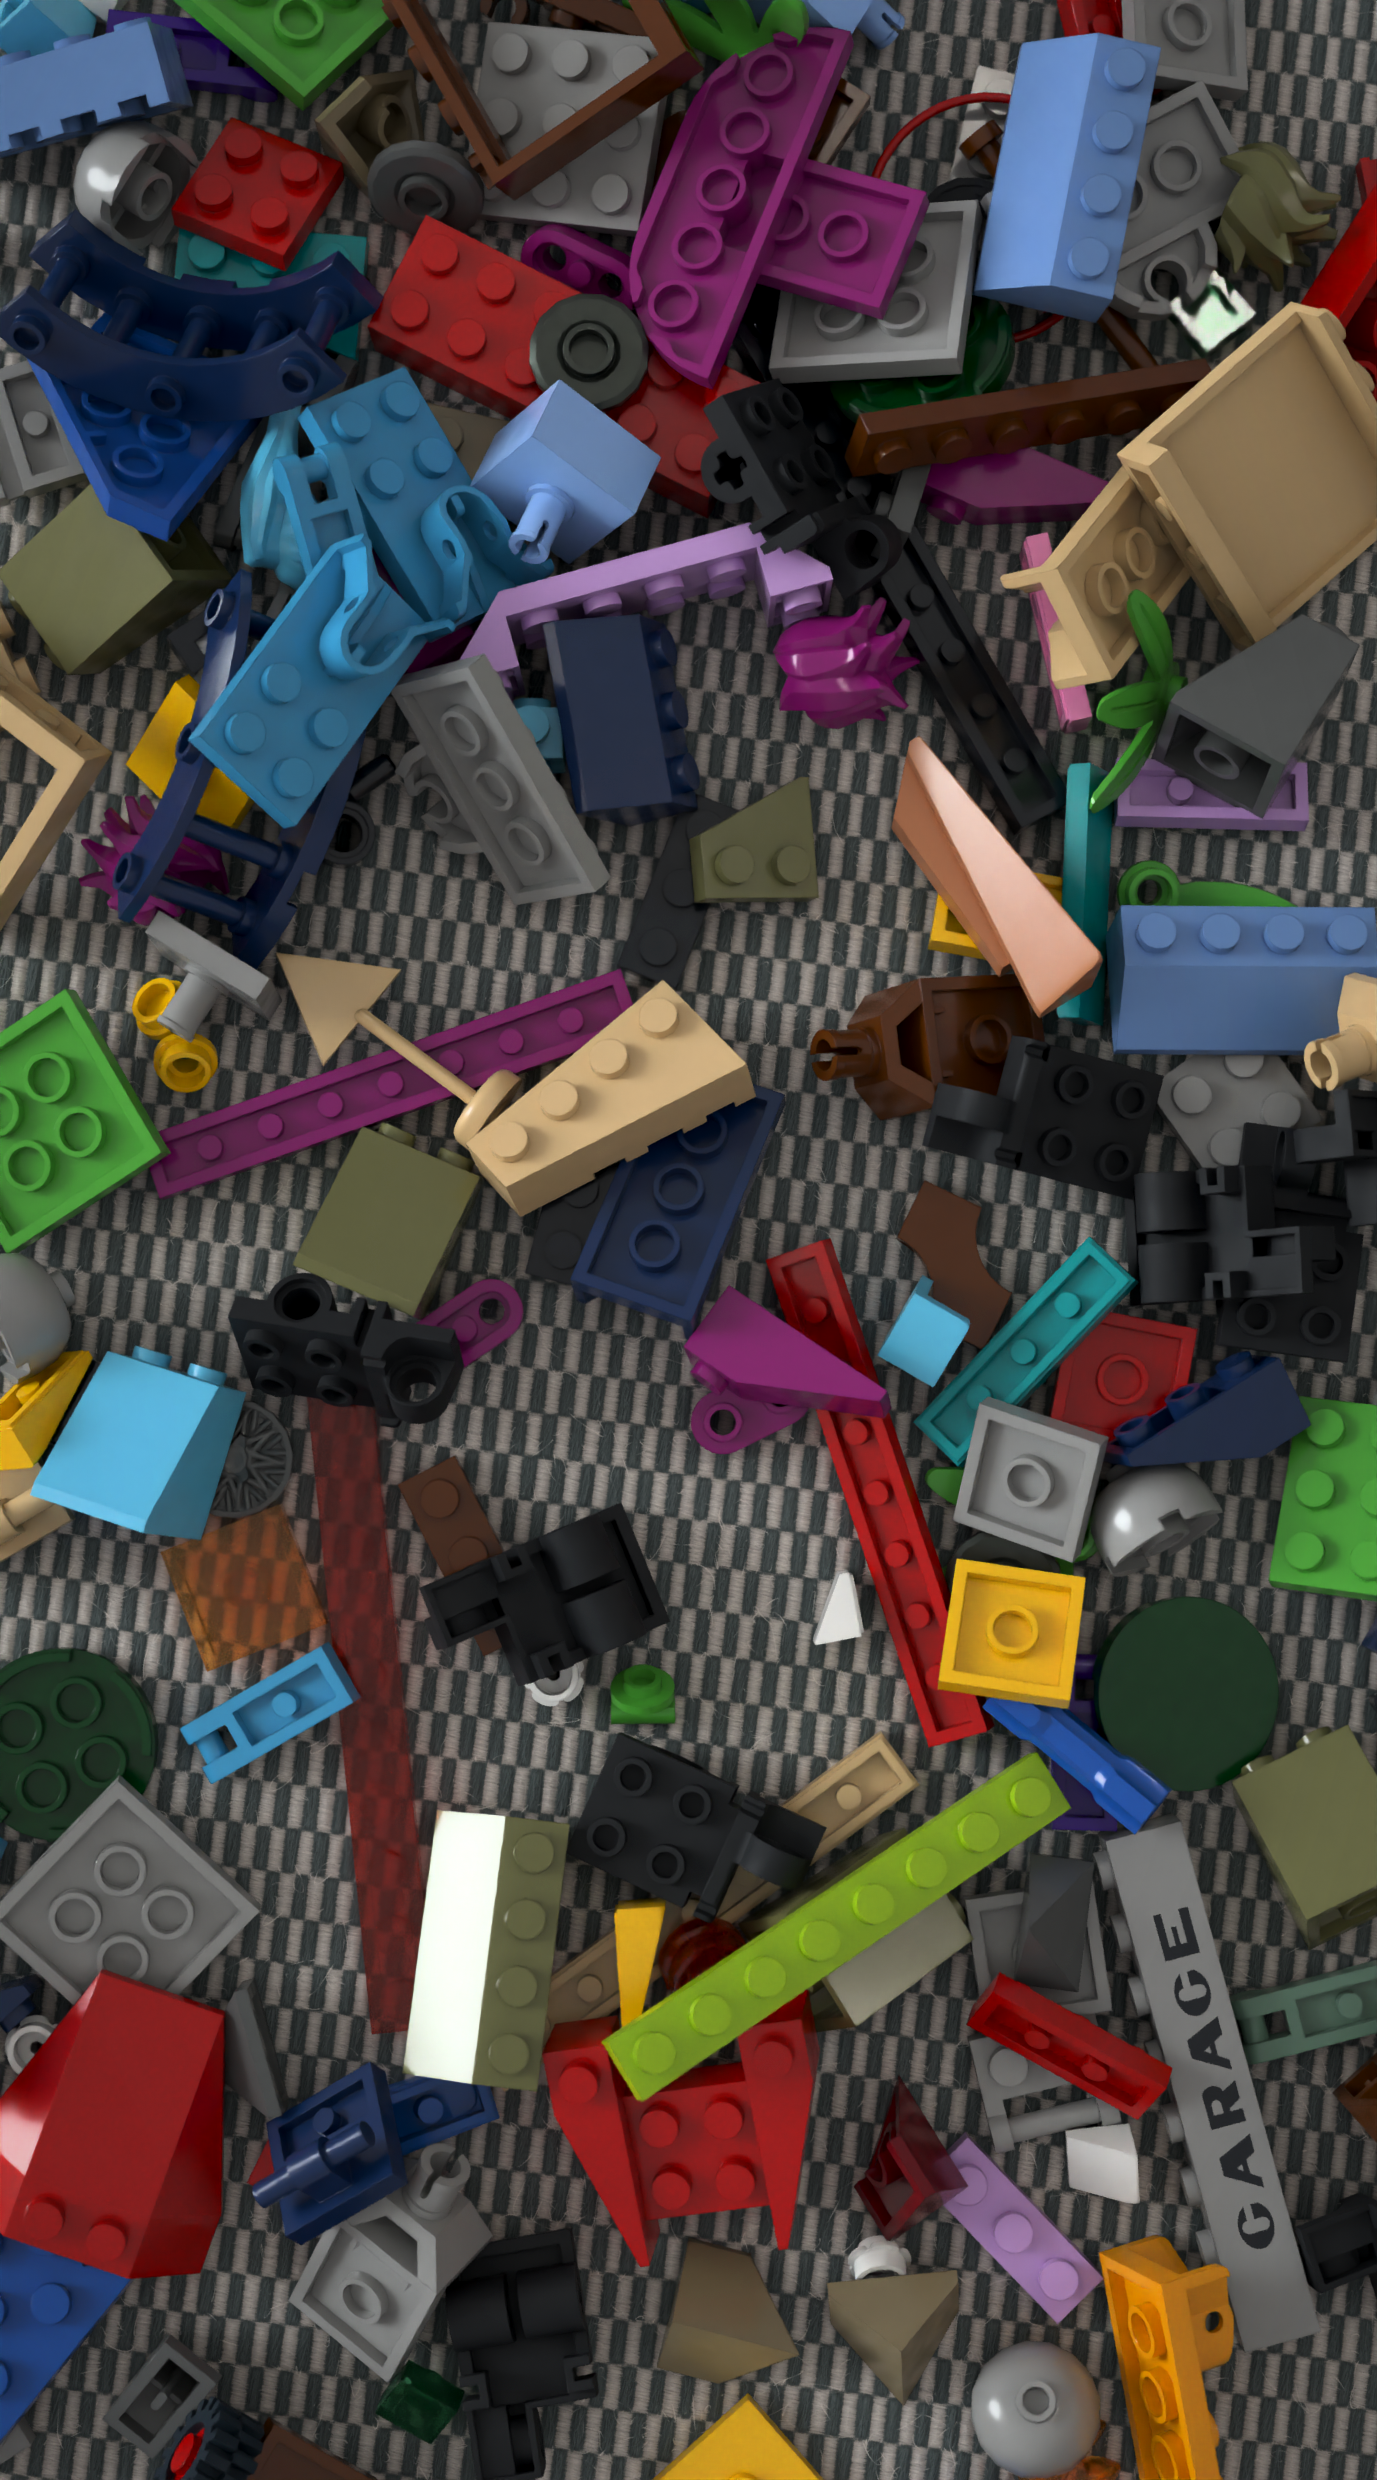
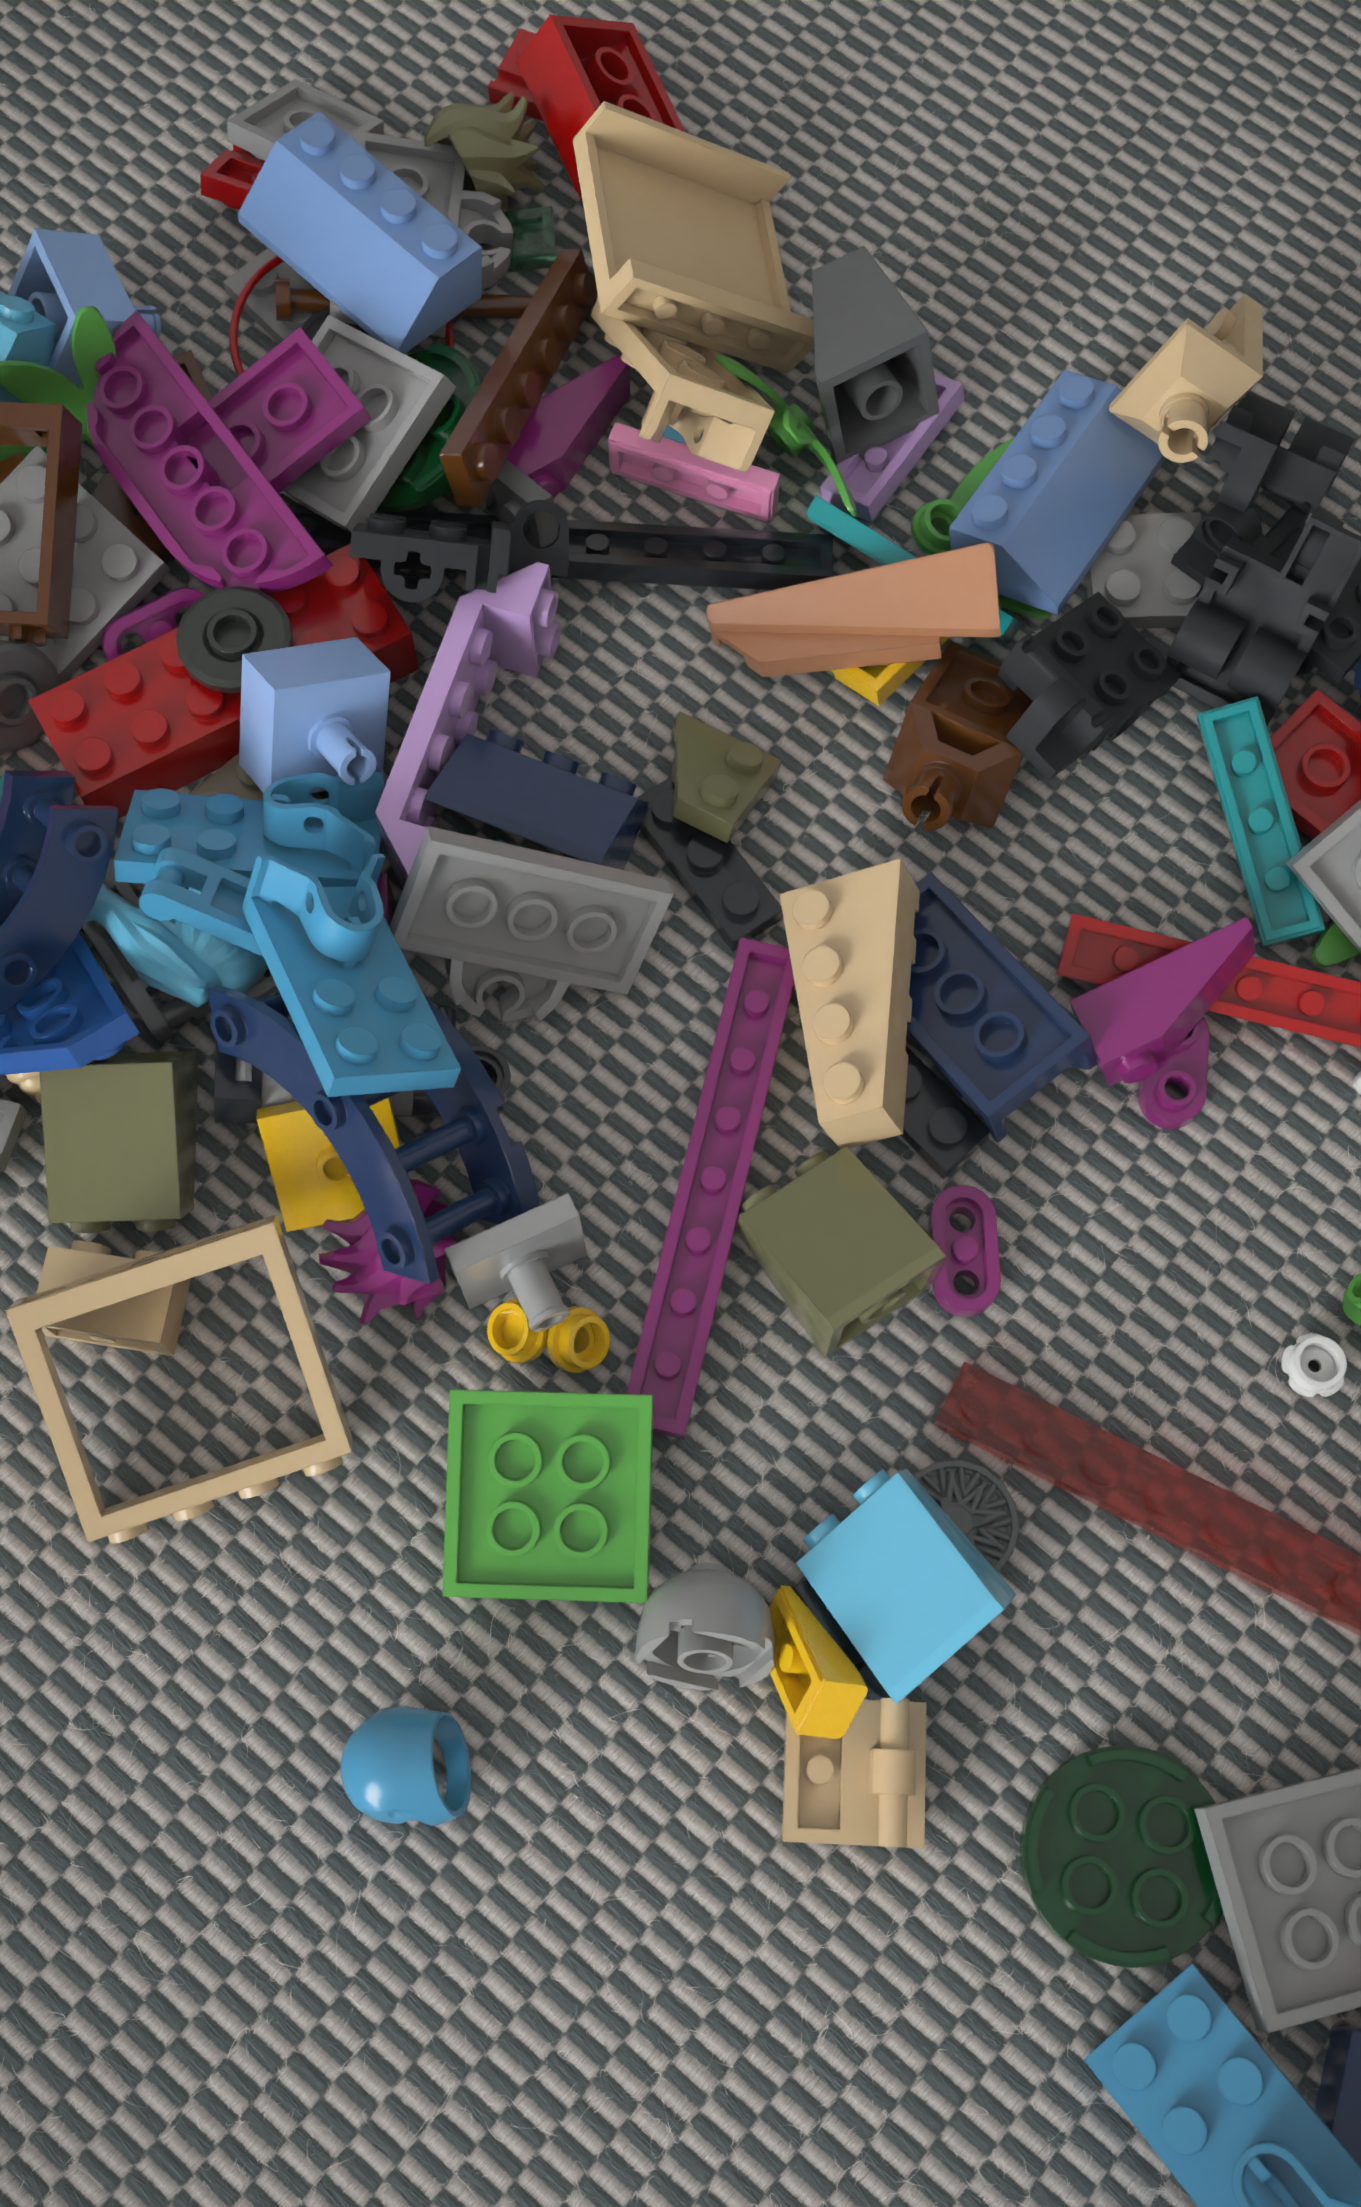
camera: 60 degrees left, 15 degrees down
(244, 1587) = (1081, 1586): clear orange plate -> none
(272, 1711) = (1214, 1632): dark azure plate -> none
(338, 997) = (613, 1174): tan piece -> none
(357, 1358) = (932, 1357): black plate -> none
(453, 1524) = (1165, 1373): reddish brown plate -> none
(552, 1597) = (1255, 1317): black plate -> none
(842, 667) = (615, 622): magenta hair -> none
(924, 1335) = (1198, 883): medium azure panel -> none
(943, 1237) = (1176, 848): reddish brown tile -> none

